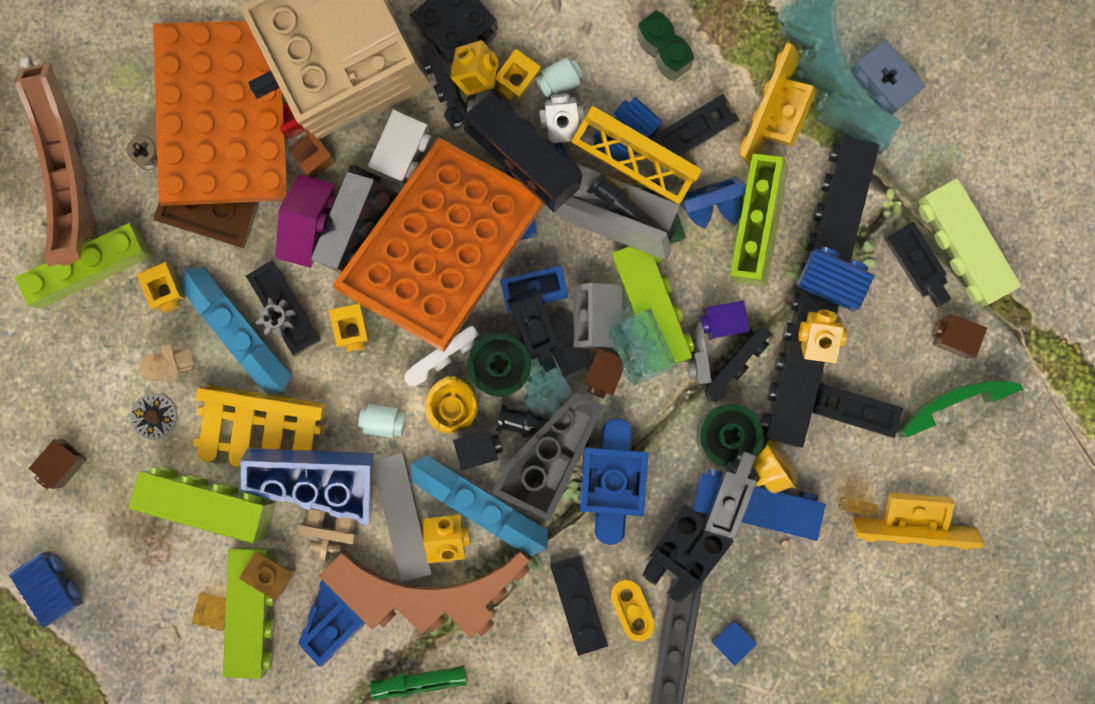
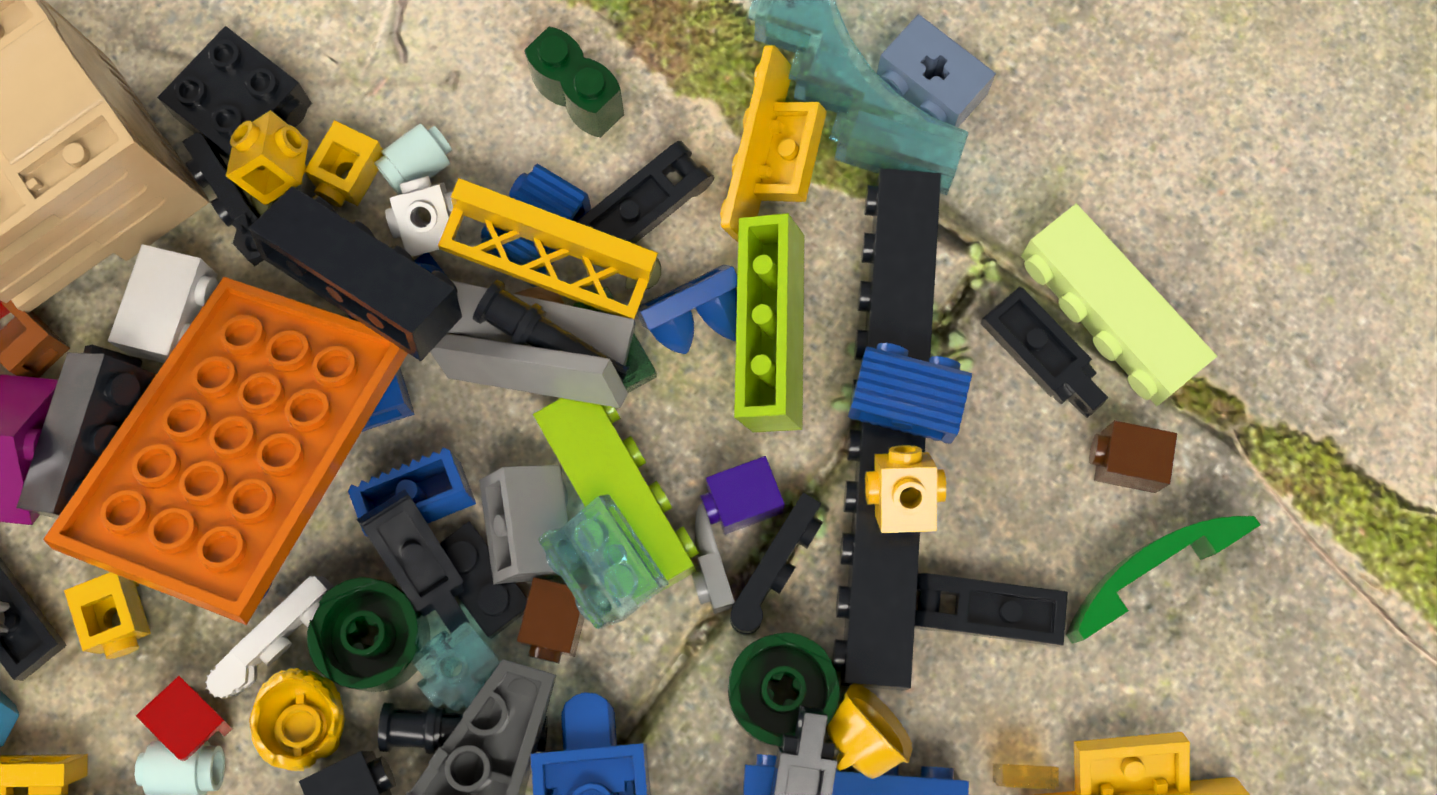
camera: 10 degrees left, 10 degrees down
(388, 394) = (181, 719): none -> red panel

